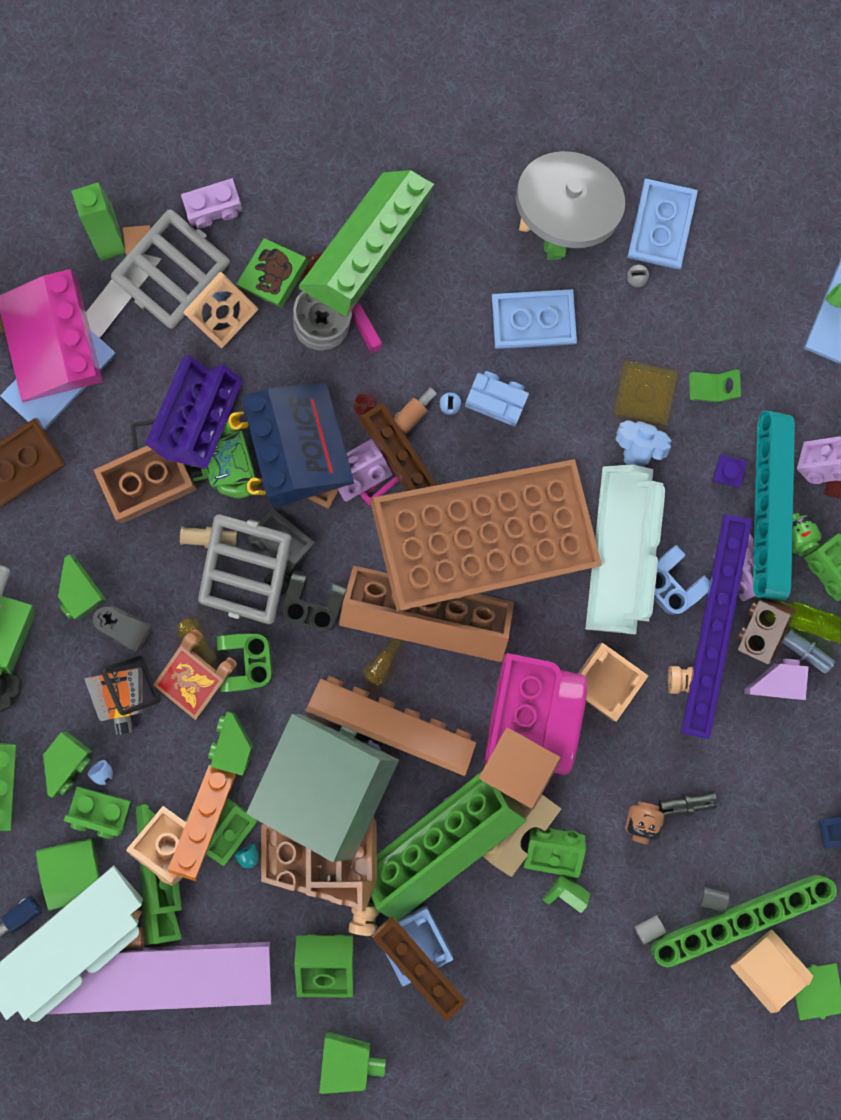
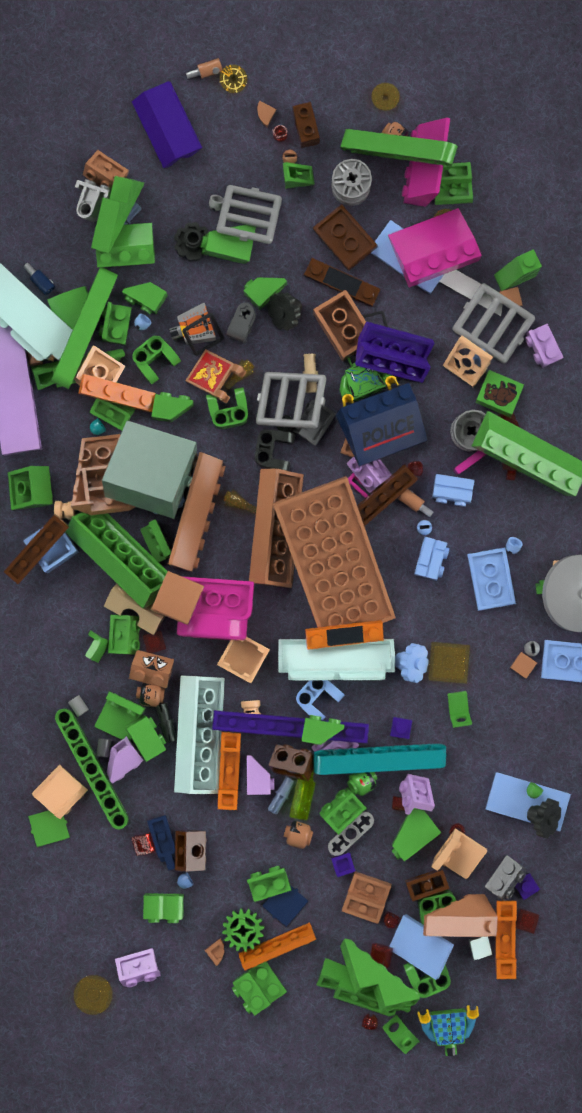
camera: 90 degrees right, 0 degrees up
(81, 476) = (342, 281): none -> plate
(98, 860) = (84, 328): none -> bright green beam
(112, 563) = (284, 310): none -> pearl dark grey plant
(151, 762) = (146, 348): none -> bright green piece
(388, 272) = (510, 475): none -> clear red tile
(401, 356) = (452, 489): none -> light blue brick
(425, 789) = (156, 541): none -> bright green bracket
(490, 281) = (513, 545): none -> light blue hinge
(571, 808) = (154, 642): none -> clear red plate
(591, 534) = (344, 634): none -> orange plate
(610, 817) = (151, 669): none -> nougat brick
(659, 290) = (523, 665): none -> nougat tile
(672, 870) = (117, 714): none -> bright green bracket
(708, 837) = (146, 738): none -> bright green brick
(724, 764) = (197, 743): none -> light aqua slope
(731, 583) = (320, 731): none -> bright green slope
(735, 874) = (122, 759): none -> lavender slope
(768, 722) = (229, 770): none -> orange slope

